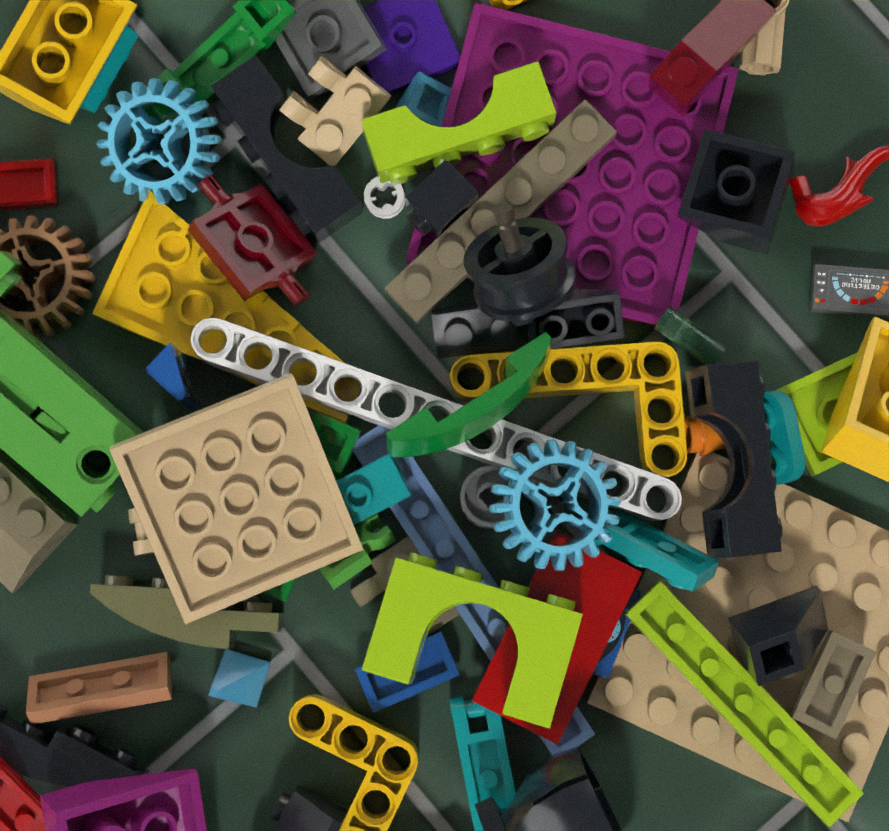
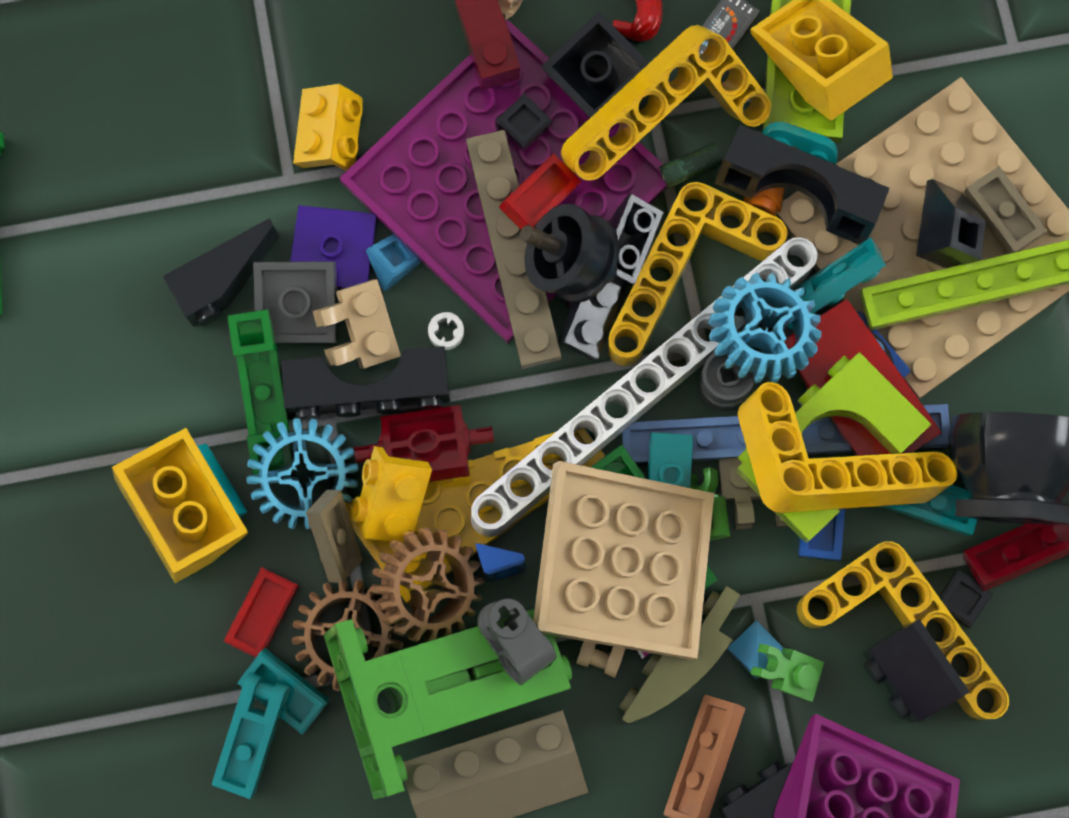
camera: 60 degrees left, 5 degrees down
(85, 440) = (520, 644): none -> dark grey piece
(112, 206) = (334, 536): none -> dark tan plate
(120, 357) = (430, 569): none -> medium nougat gear
(176, 237) = (390, 496): none -> yellow bracket
(231, 726) = (791, 671): none -> bright green plate
(405, 144) = (419, 287): lime arch -> none
(425, 435) = (659, 387): green slope -> none
(439, 200) = (481, 286): black brick -> none
(439, 661) = (798, 484): none -> yellow beam
(569, 204) = (540, 192): none -> red tile
(638, 147) = (524, 122): none -> black tile
(741, 270) = (664, 97): none -> yellow beam

